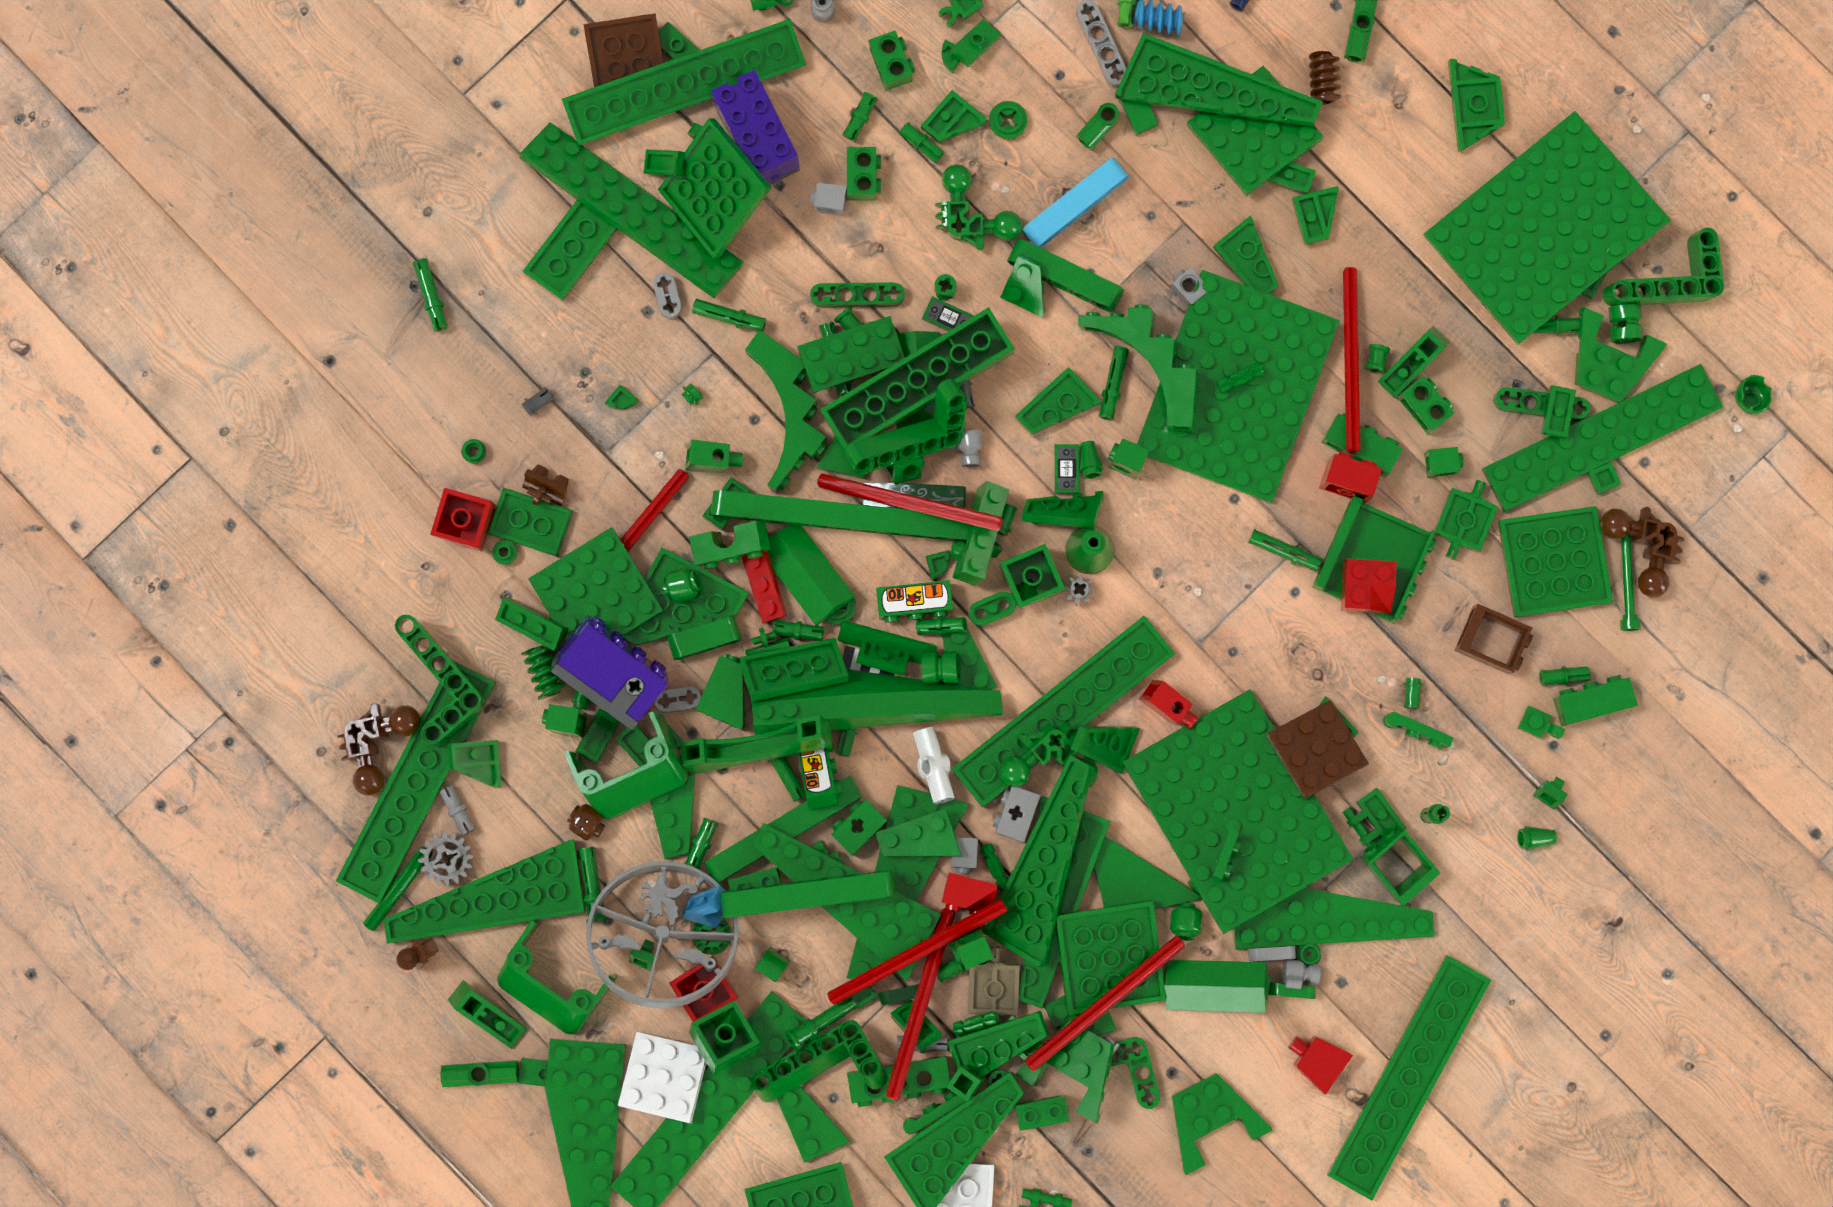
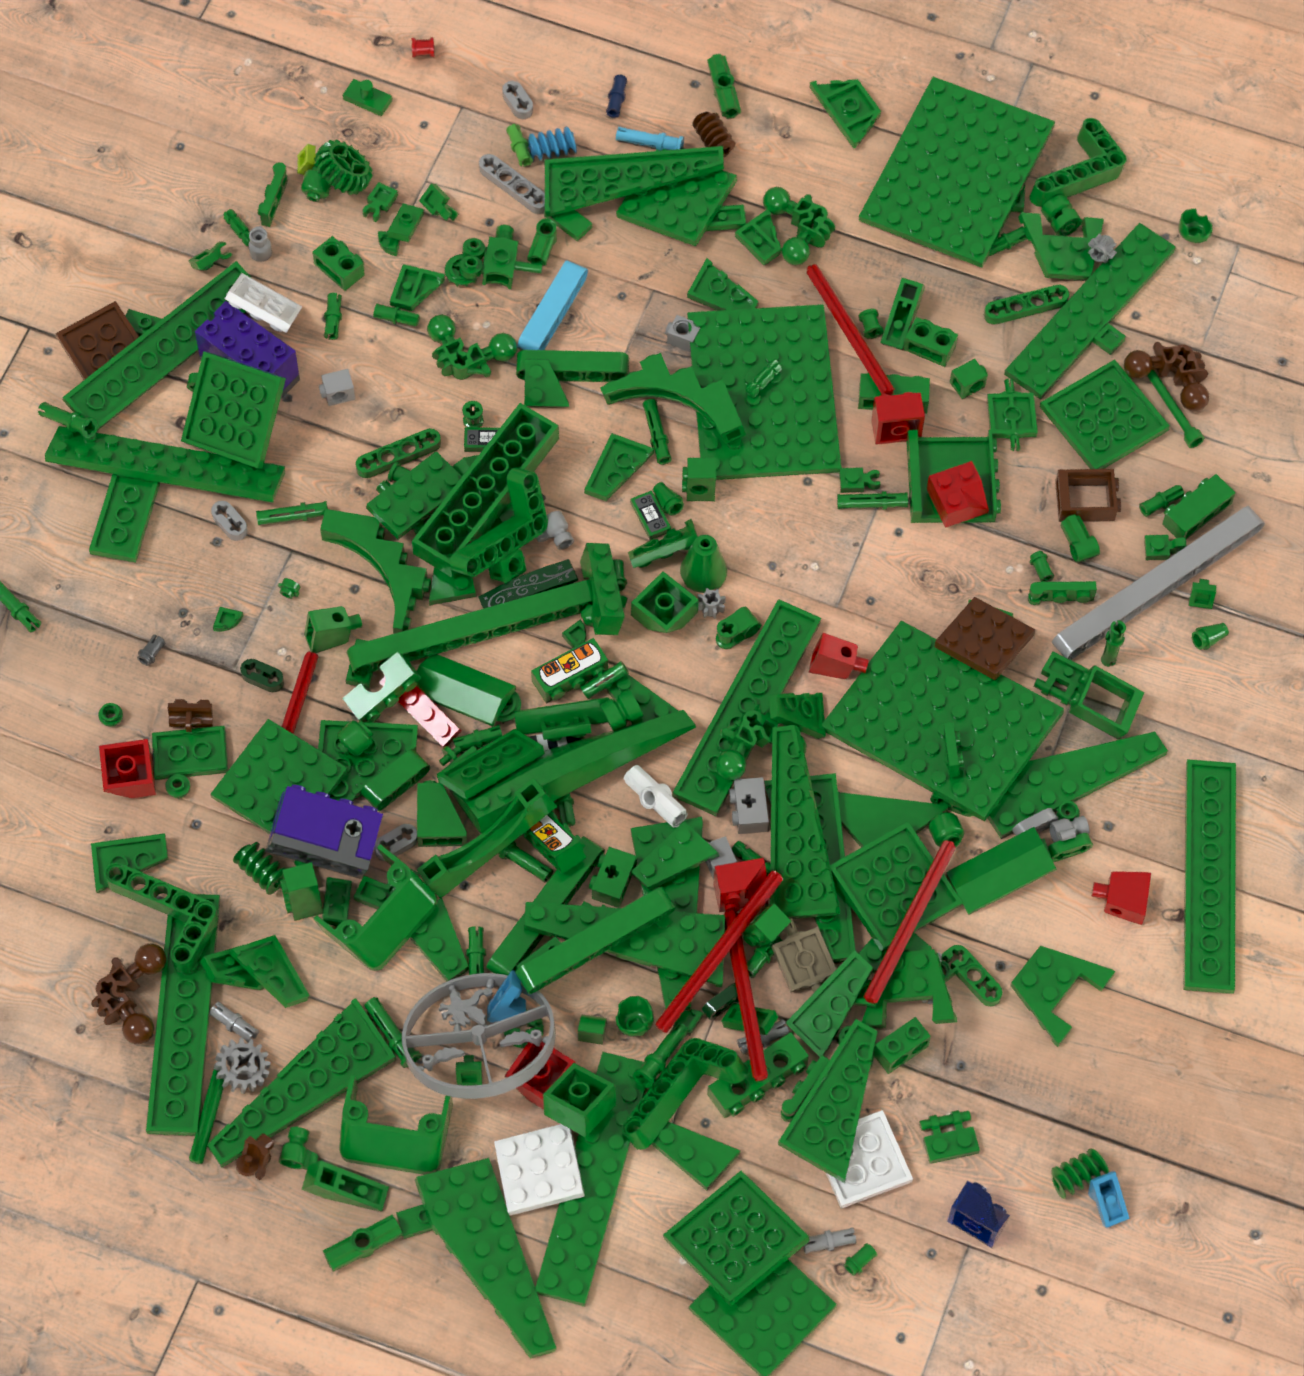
camera: 25 degrees left, 20 degrees down
(429, 604) = (133, 852): none -> green wing
(457, 960) = (294, 1153): none -> green piece
(511, 777) = (272, 969): none -> green wing
(531, 623) = (230, 830): green plate -> none
(562, 129) = (73, 421): none -> green pin
(586, 822) = (360, 977): reddish brown head -> none
(633, 469) = (263, 672): none -> dark green beam
(663, 162) = (177, 413): green tile -> none
(794, 81) = (263, 303): none -> white plate
(814, 974) = (634, 1016): none -> green hair
(858, 173) = (353, 358): green brick -> none
(910, 502) = (526, 587): red axle -> none
(965, 1083) = (820, 1041): green brick -> none
(976, 1023) = (803, 994): green axle -> none
(992, 609) = (641, 651): green plate -> none
(1015, 33) = (435, 202): none -> green plate
(1047, 125) = (498, 258): none -> green piece
(1096, 626) = (736, 628): none -> green piece
(1268, 60) = (656, 141): none -> medium azure pin
(1278, 519) = (854, 480): none -> green plate
(1342, 244) = (804, 214): none -> green piece
(1462, 689) = (1081, 543): none -> green piece
(1516, 761) = (1158, 582): none -> light grey beam
(1558, 412) = (1043, 300): green plate -> none
(1646, 380) = (1102, 248): none -> light grey gear

